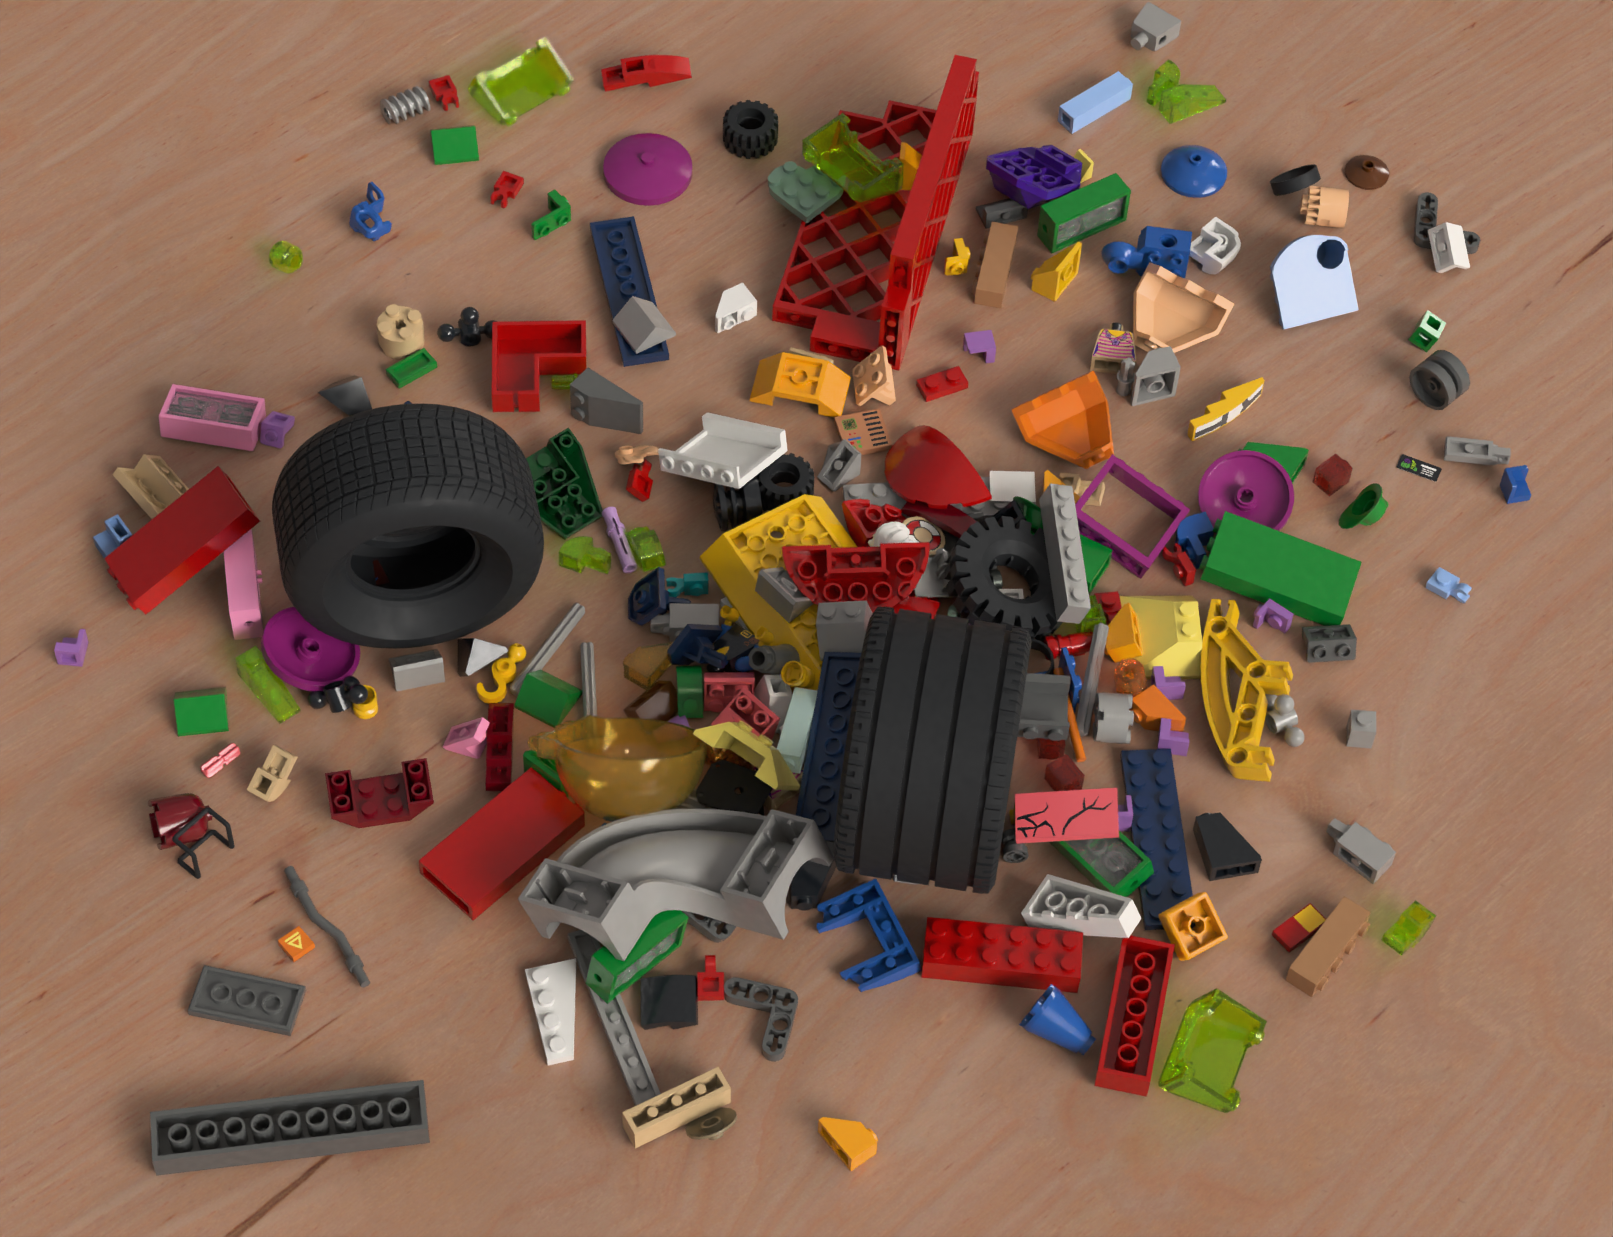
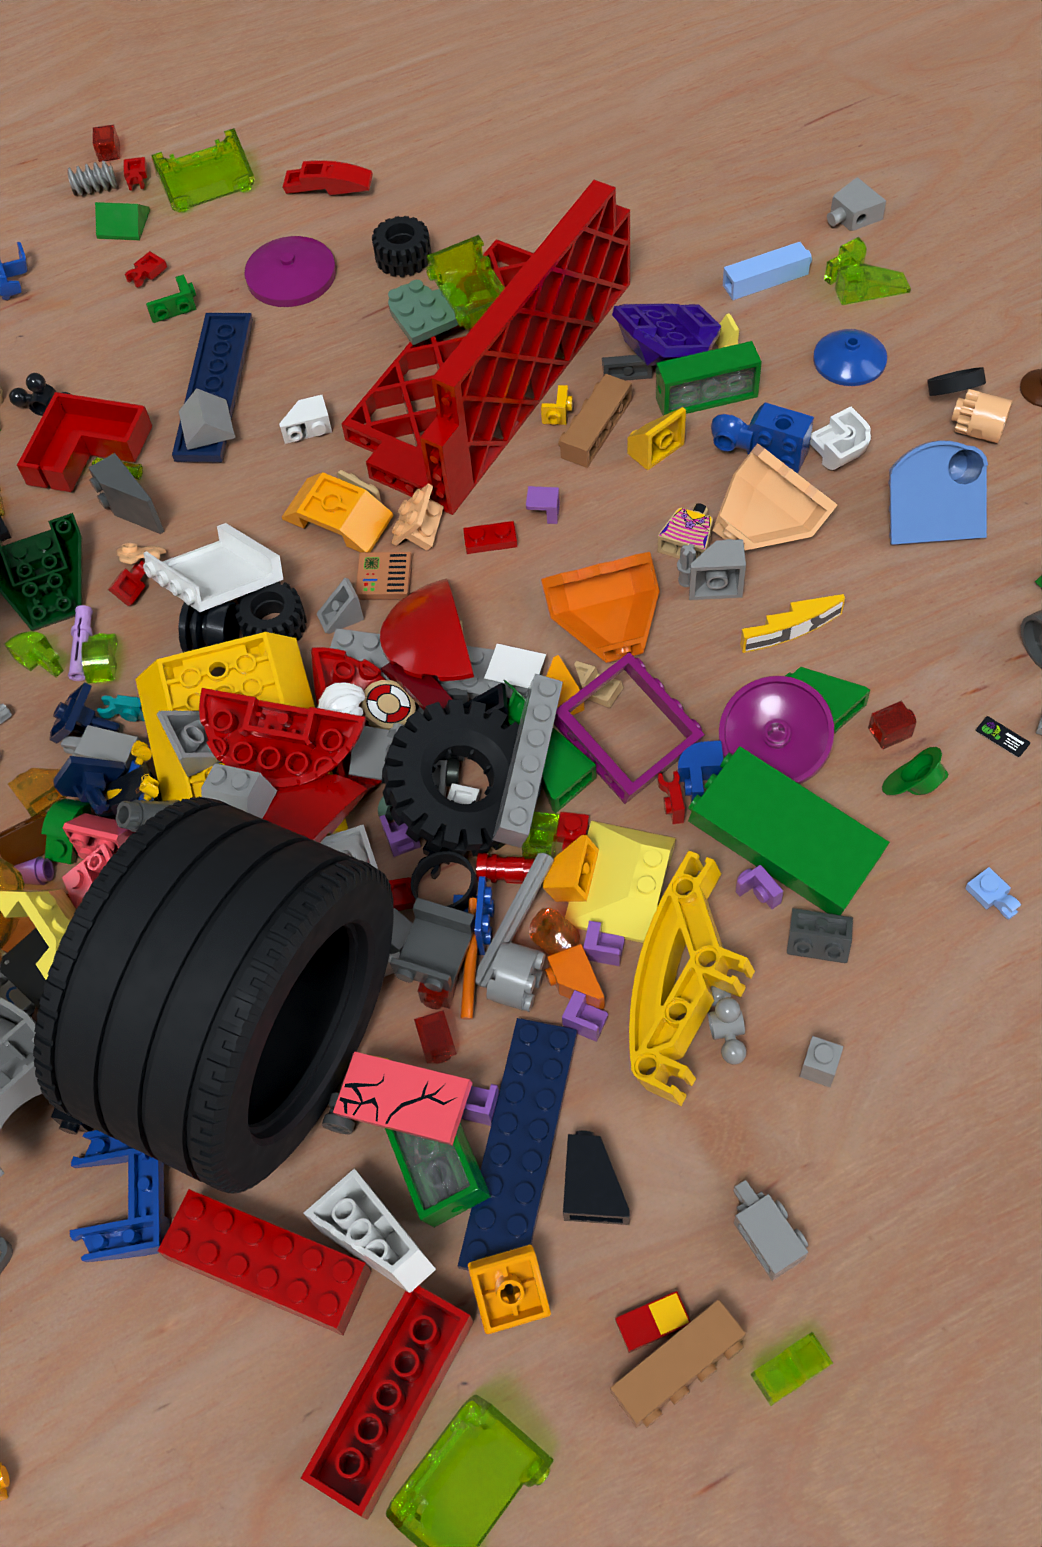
camera: 25 degrees right, 5 degrees up
(400, 65) = (106, 143): none -> clear red brick
(1058, 1022) = (291, 1382): blue cone -> none

